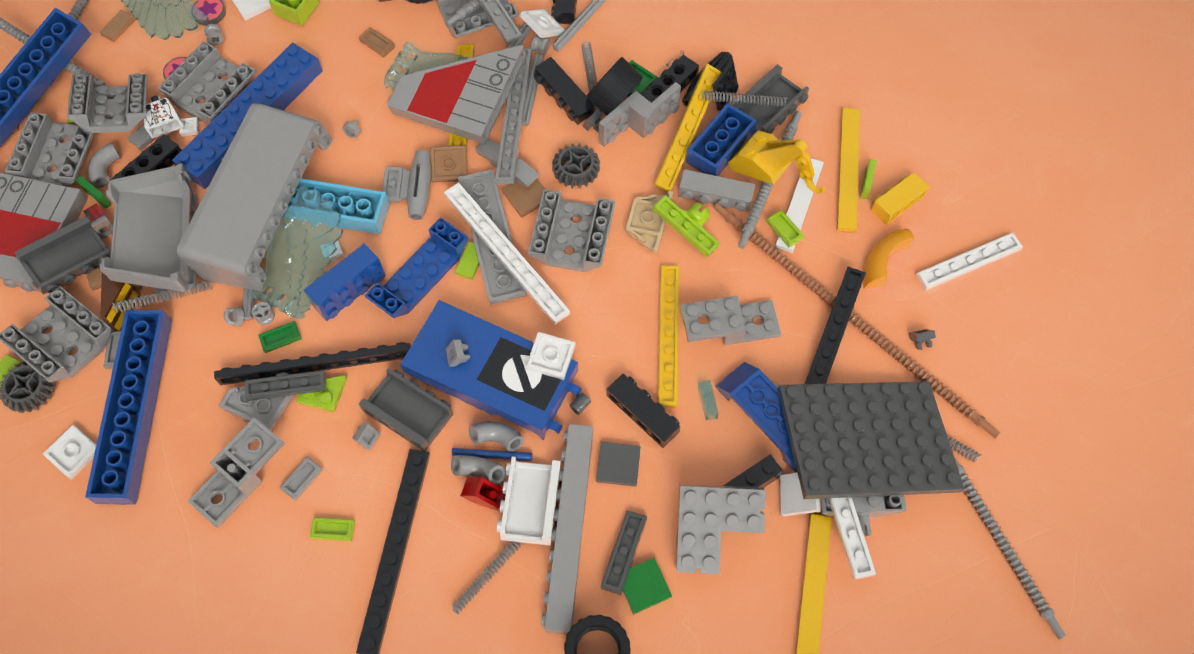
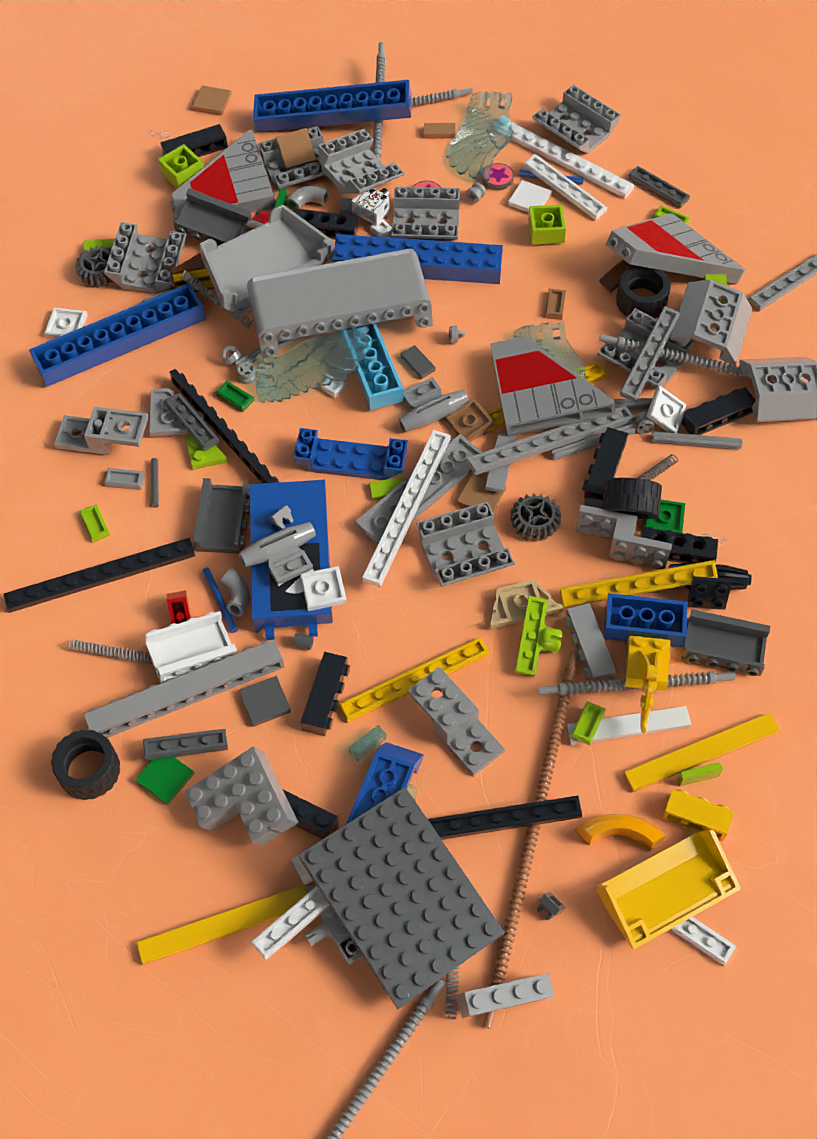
camera: 60 degrees right, 5 degrees down
(40, 142) = (295, 148): none -> medium nougat tile
(325, 452) = (154, 483): none -> dark grey bar
(345, 282) = (304, 408): blue brick -> none
(357, 171) = (418, 362): none -> dark grey tile
(366, 436) = (182, 501): light grey tile -> none
(477, 467) = (200, 594): light grey cylinder -> none
(494, 370) = (282, 552): none -> light grey plate
(747, 100) = (703, 616): light grey piece -> none
(949, 248) = (669, 887): none -> yellow slope
(986, 406) = (505, 995): none -> light grey brick

